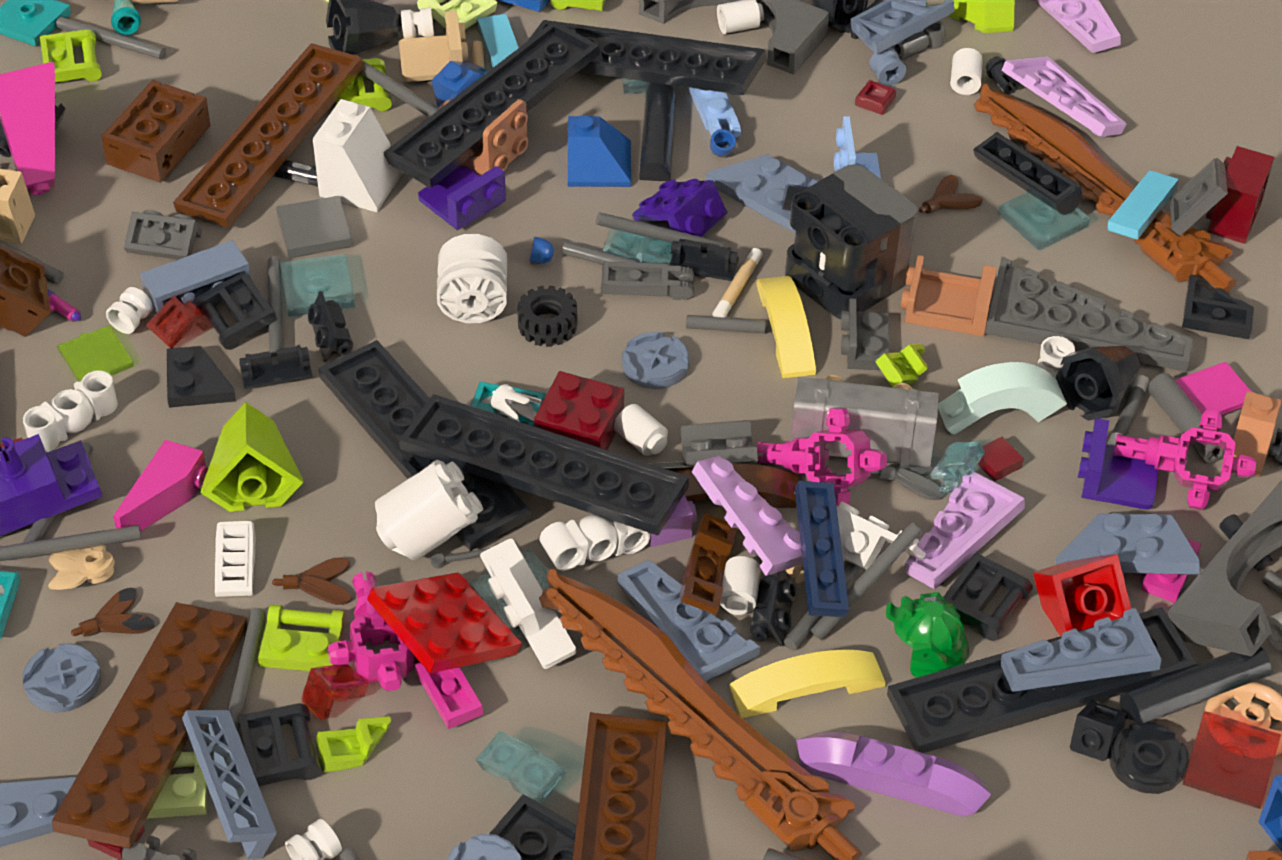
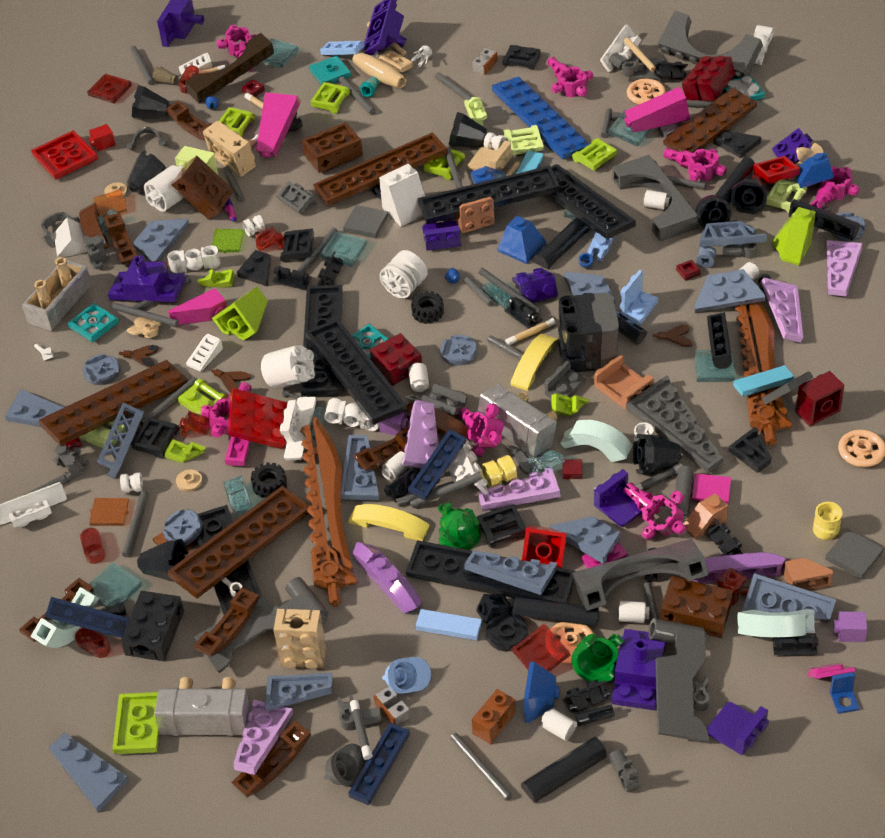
camera: 40 degrees right, 0 degrees up
(141, 426) = (218, 279): none -> lime slope
(193, 274) = (292, 220): sand blue brick -> none
(405, 789) = (189, 480): none -> tan piece
(509, 402) = (368, 336): white piece -> none
(557, 698) = (265, 472): none -> black tyre
(647, 280) = (488, 310): dark grey hinge -> none
(909, 504) = (499, 471): none -> light yellow wheel
(971, 100) = (728, 290): none -> sand blue wing
(1055, 795) = (448, 624): none -> light blue tile

